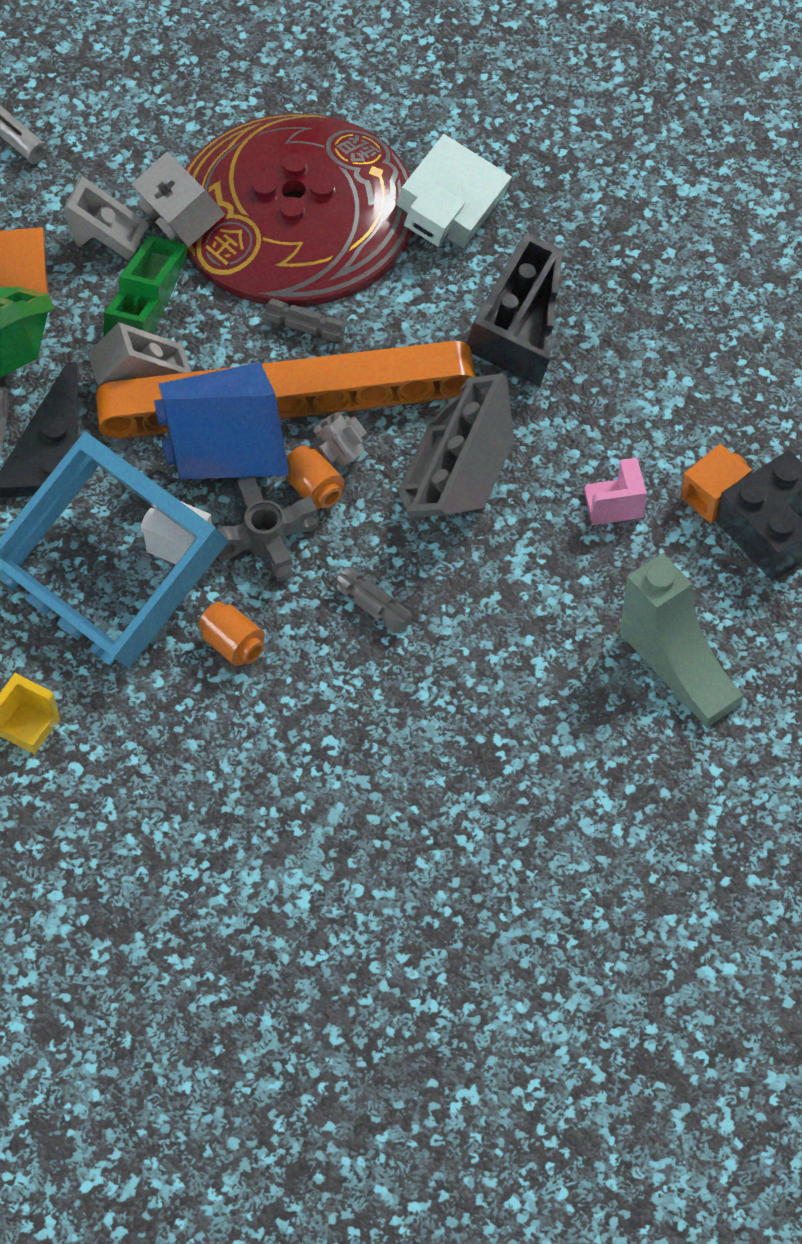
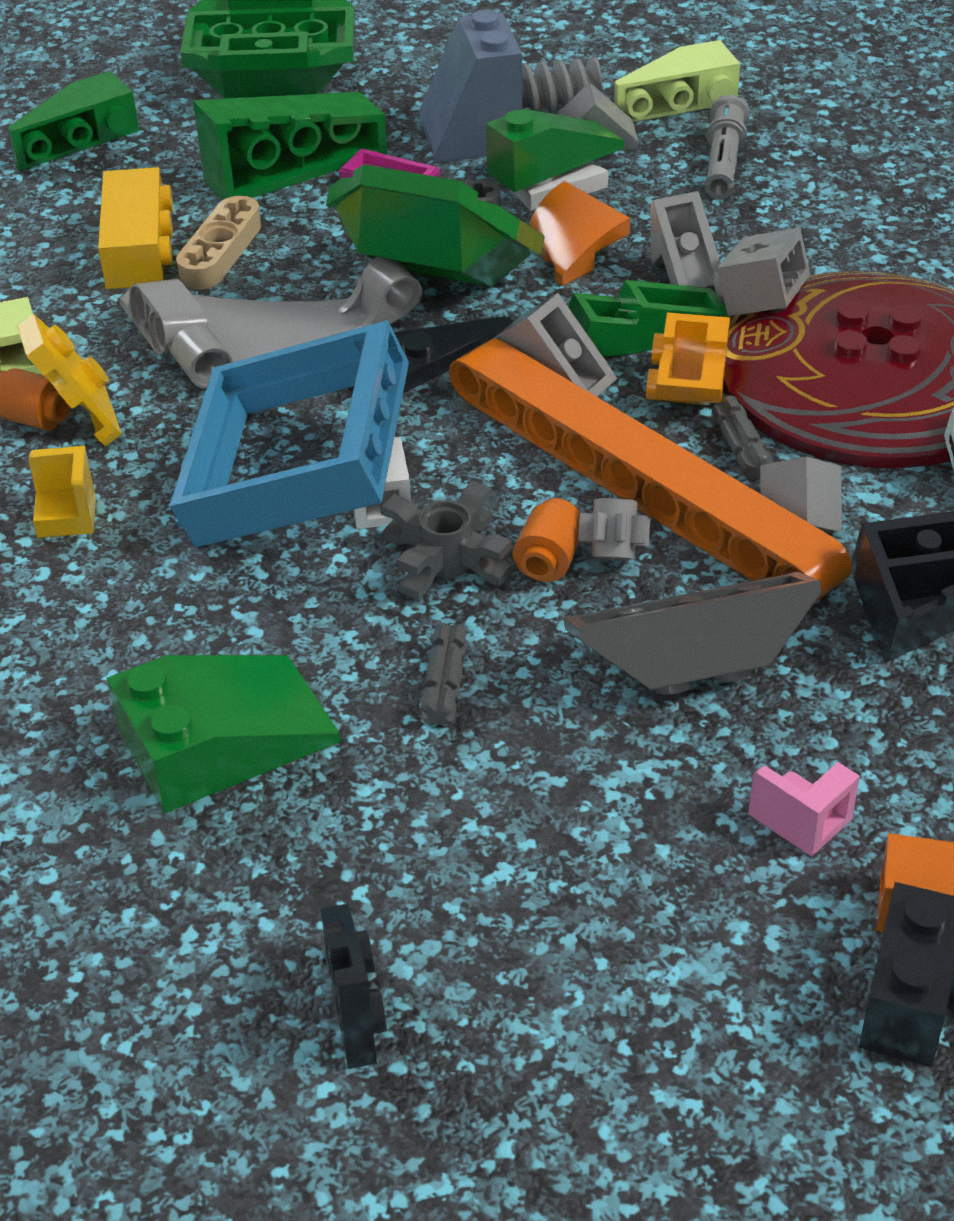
camera: 55 degrees right, 15 degrees down
(220, 298) = (689, 360): none -> light orange cylinder
(222, 425) = (527, 427): blue slope -> none
(231, 633) = (289, 584): orange brick -> none
(317, 738) = (215, 721): none -> green slope
(390, 326) = (806, 489): none -> light grey panel
(578, 772) = (357, 1006): none -> black wing
(666, 633) = (634, 968): sand green arch -> none

